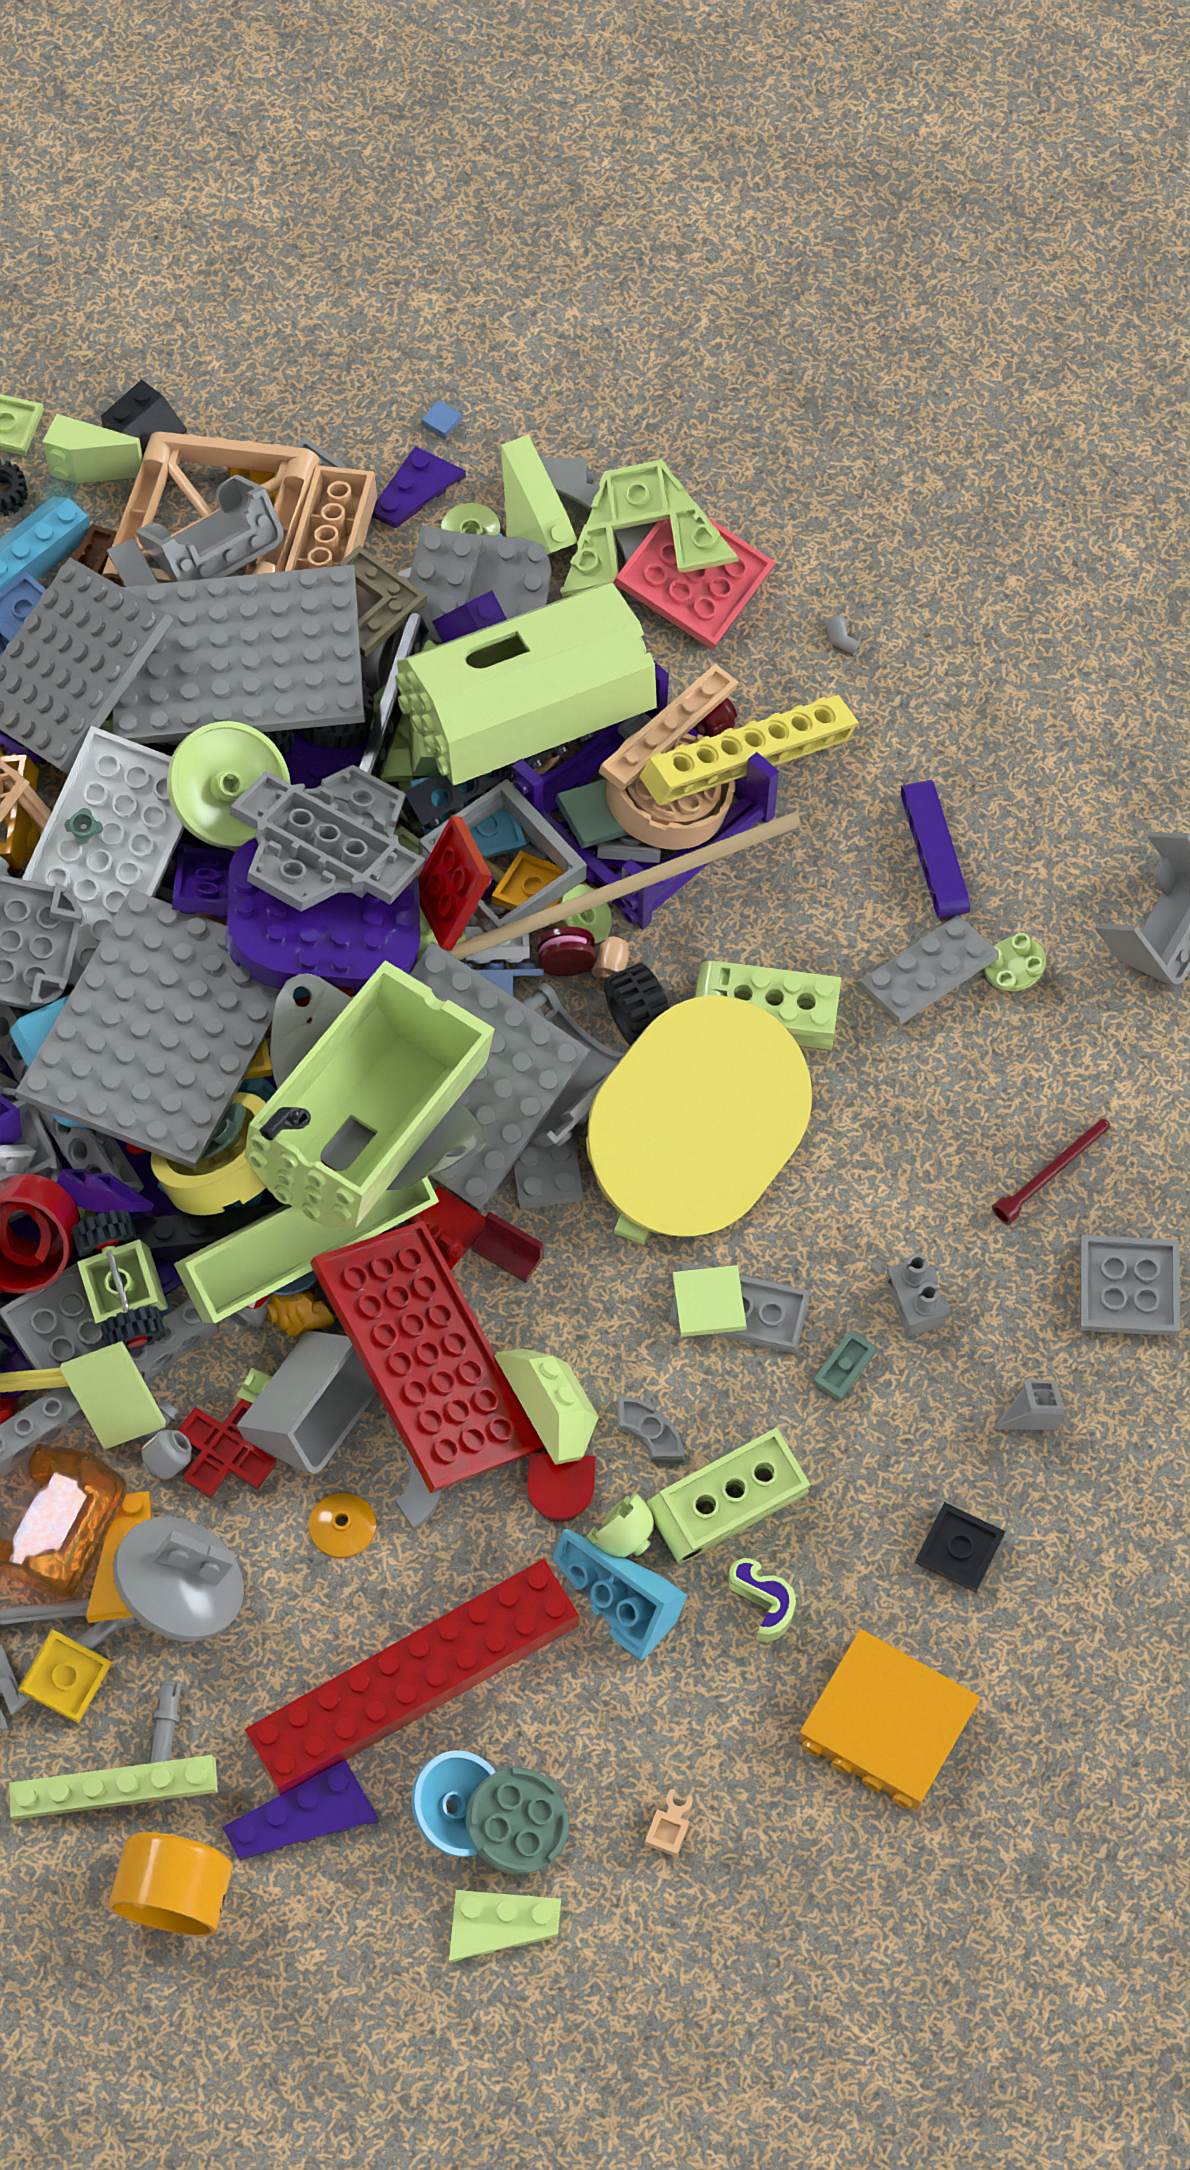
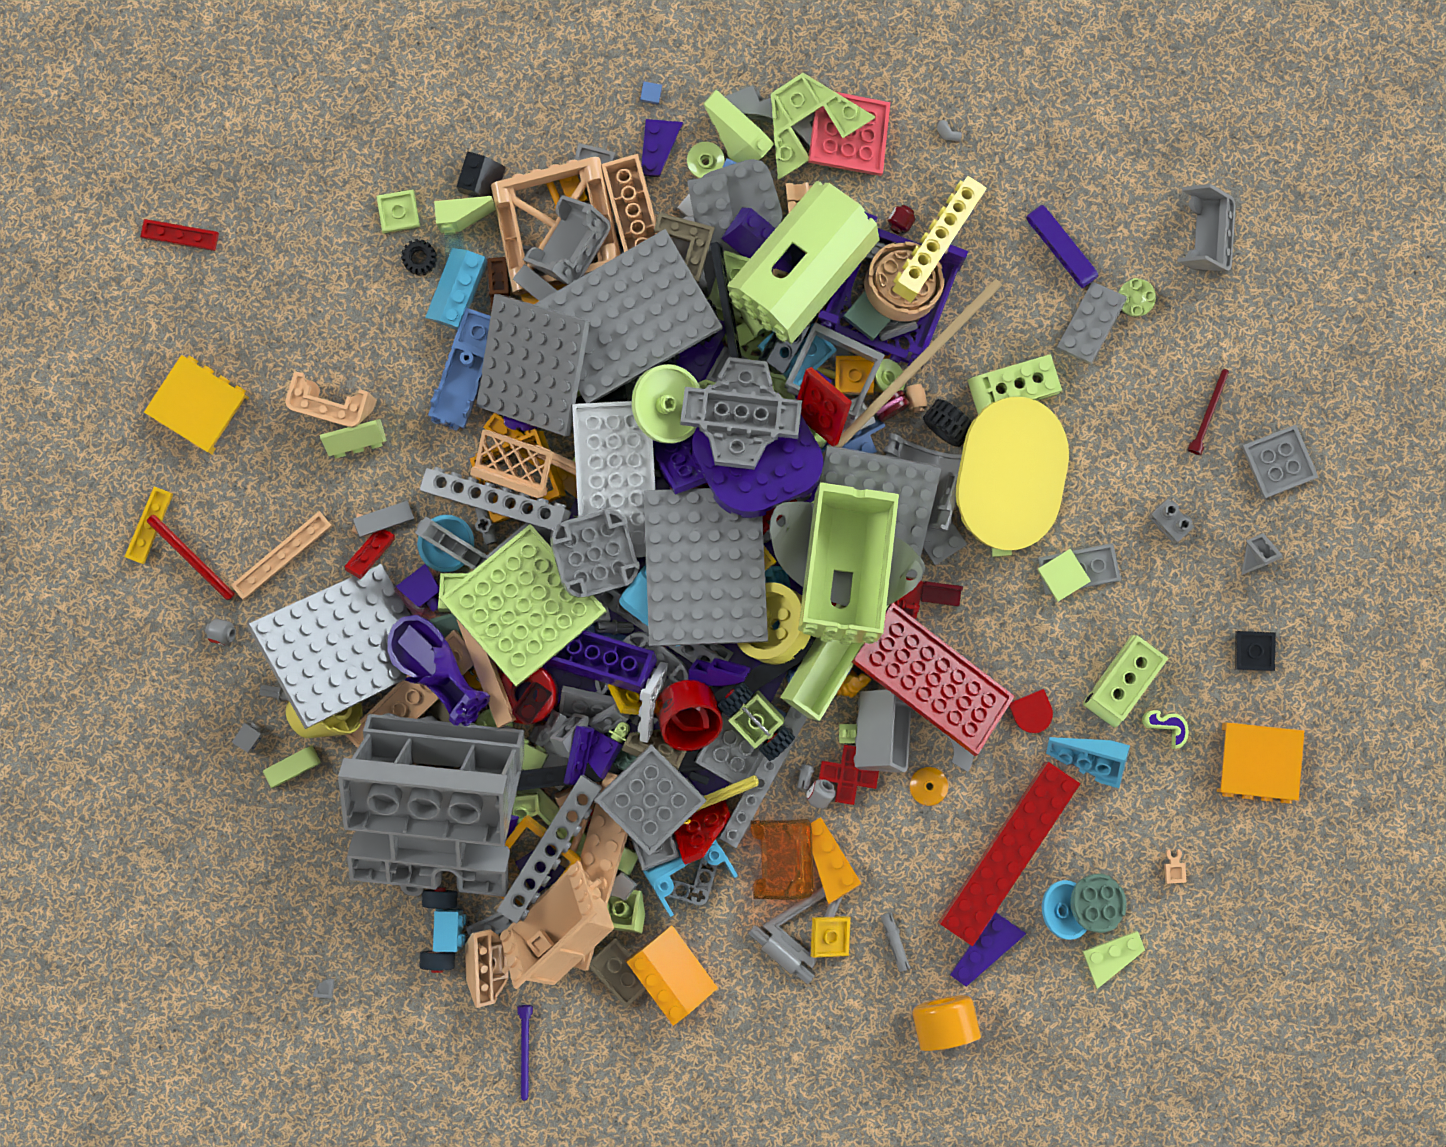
camera: 20 degrees left, 20 degrees up
(74, 824) = (598, 461): sand green plate -> none
(113, 1395) = (781, 780): yellowish green tile -> none
(113, 1787) = (886, 982): yellowish green plate -> none
(178, 1579) = (865, 861): light grey bracket -> none
(228, 1132) = (774, 611): sand green dish -> none
(285, 1119) = (821, 610): black arm -> none
(551, 1401) = (1007, 670): yellowish green wedge -> none
(624, 1528) = (1078, 724): yellowish green cylinder -> none
(651, 1428) = (1064, 658): light grey tile -> none
(668, 726) = (890, 248): light nougat plate -> none
(844, 1365) = (1150, 577): sand green plate -> none

